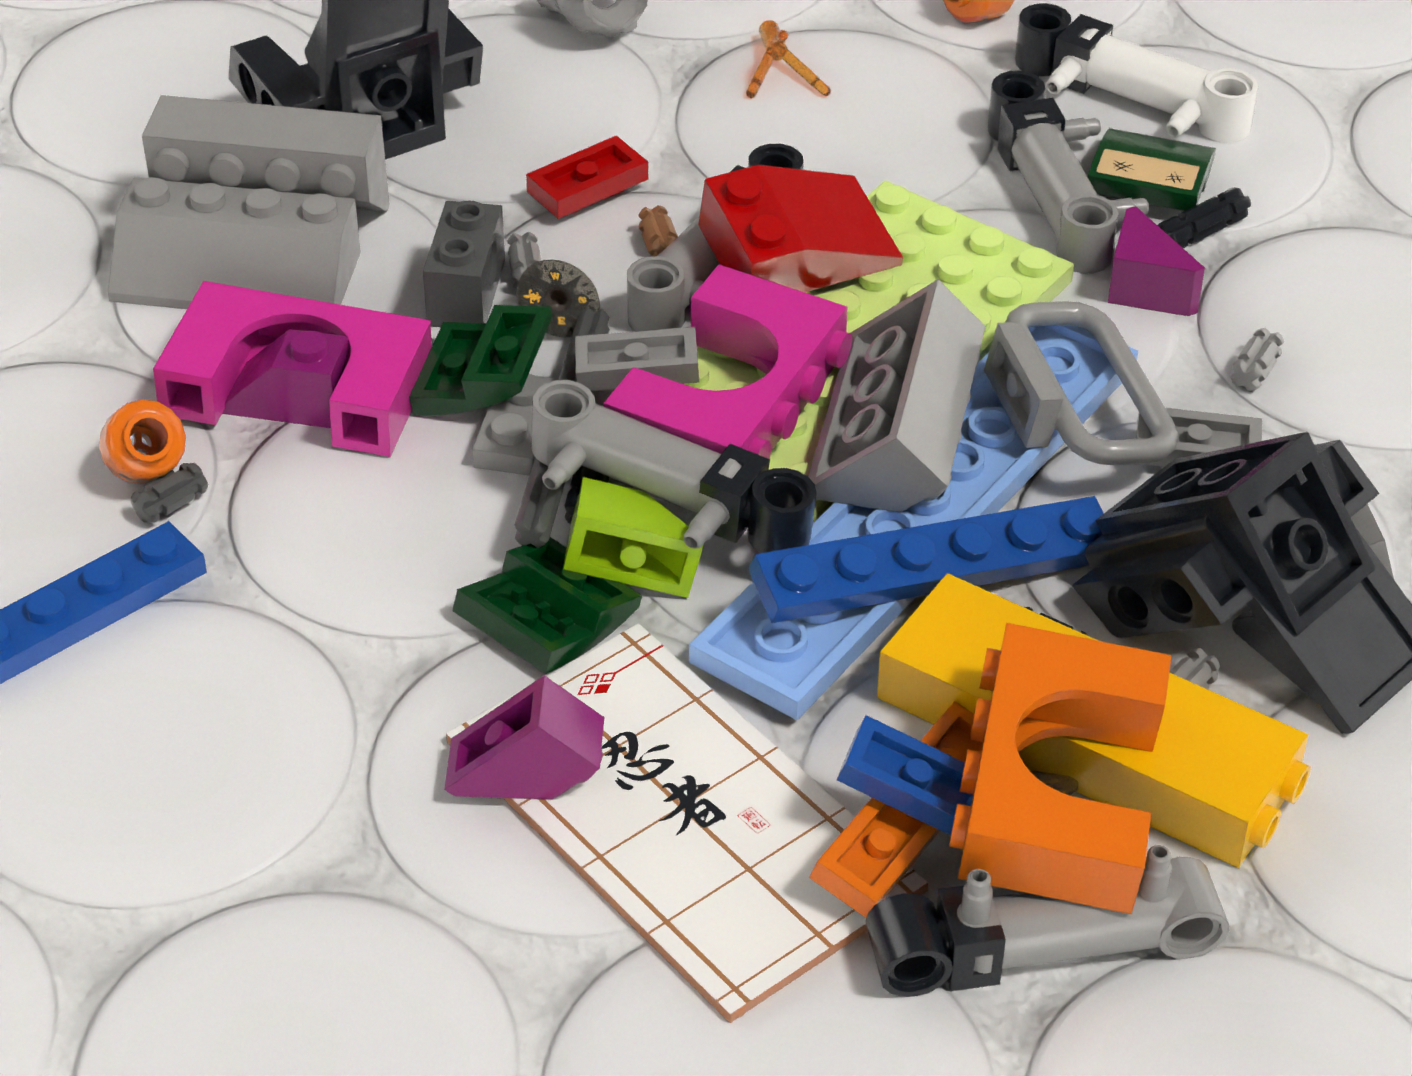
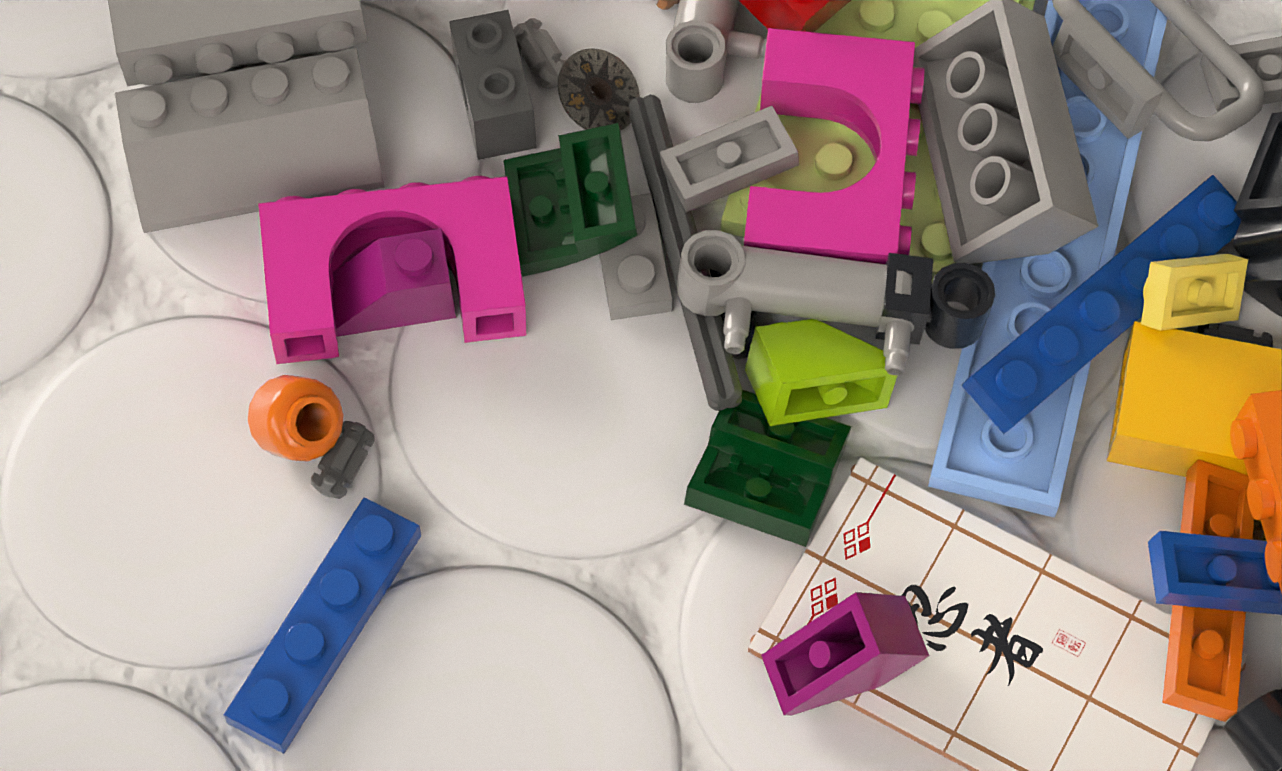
camera: 20 degrees left, 20 degrees up
(1019, 567) = (1193, 291): none -> light yellow plate

